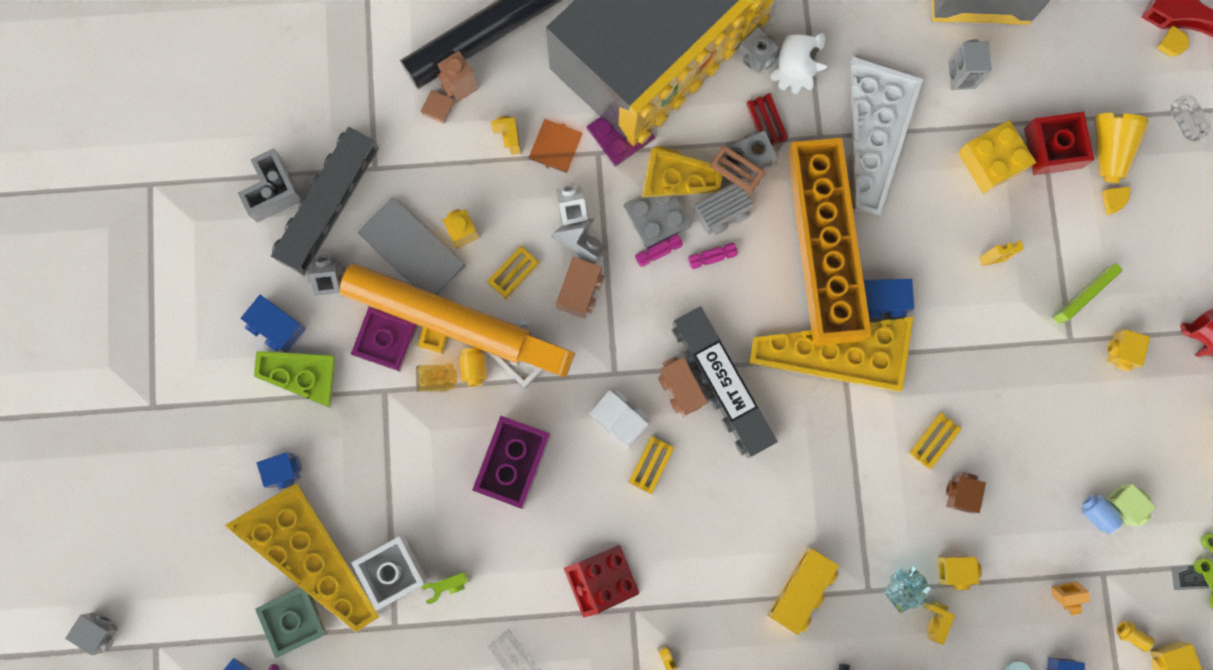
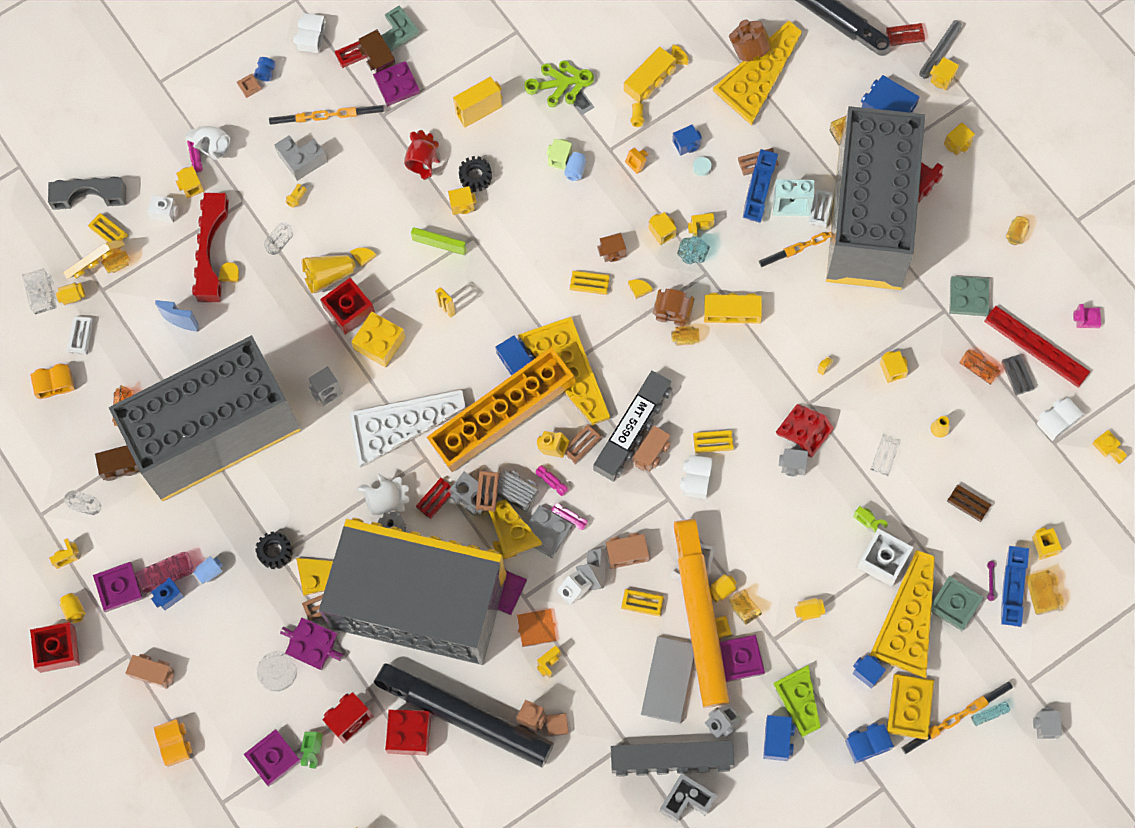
camera: 115 degrees left, 10 degrees down
(149, 577) = (990, 713): none -> clear light blue axle
(167, 574) = (980, 703): none -> piece
(203, 419) = (869, 743): none -> blue brick
(212, 490) = (910, 706): none -> yellow tile
(388, 449) = (809, 609): none -> yellow brick
(460, 227) = (635, 652): yellow brick -> none
(512, 462) = (768, 524): magenta brick -> none
(568, 540) = (793, 462): none -> light grey brick
(742, 334) = (593, 432): none -> nougat tile
(757, 274) = (553, 444): none -> yellow brick
(801, 512) = (685, 335): none -> clear yellow brick
(845, 518) = (673, 306): none -> dark orange brick
(894, 496) = (639, 288): none -> yellow tile
(1170, 382) = (472, 164): none -> black tyre

